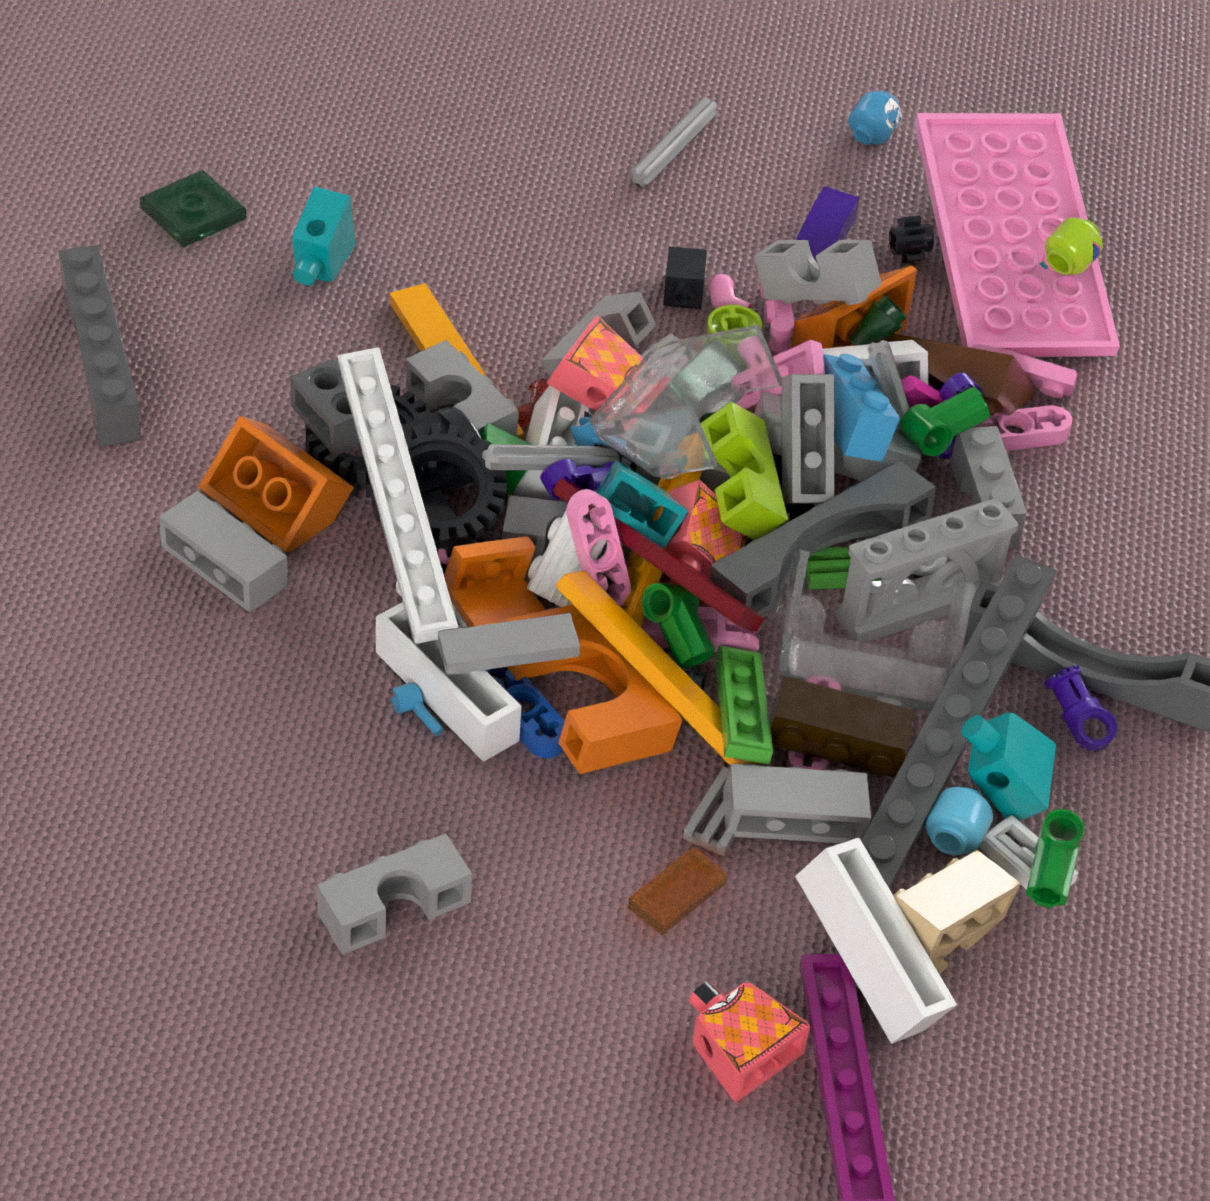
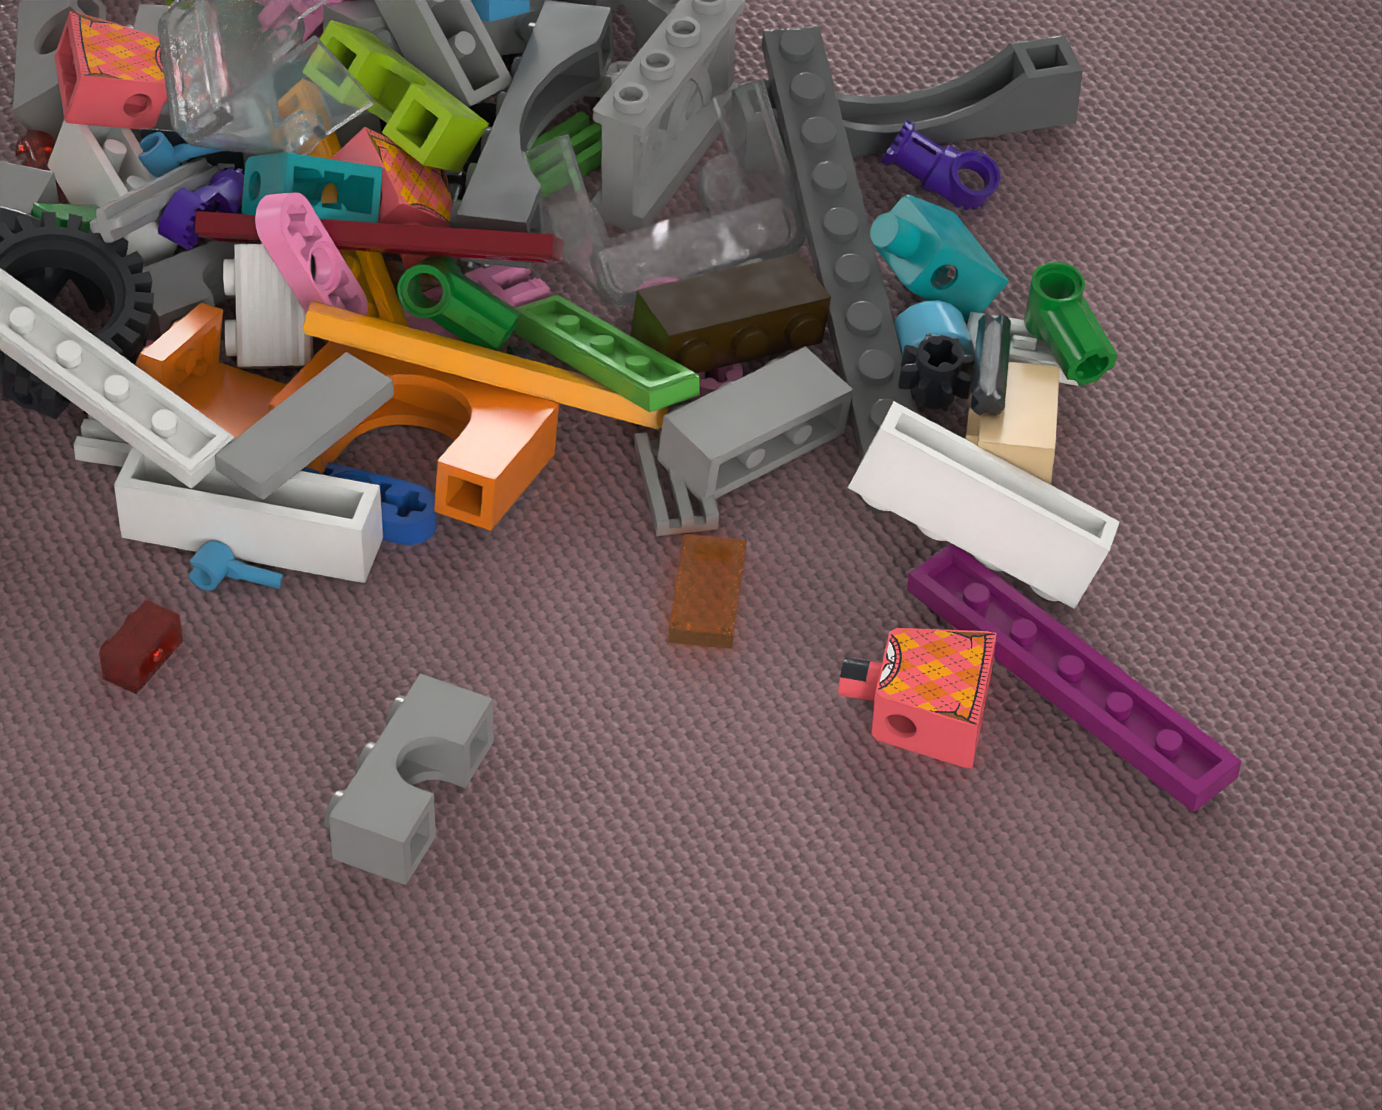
camera: 35 degrees left, 0 degrees up
(324, 722) = (140, 646): none -> clear red piece
(931, 838) = (936, 372): none -> black gear
(965, 853) = (991, 364): none -> black axle

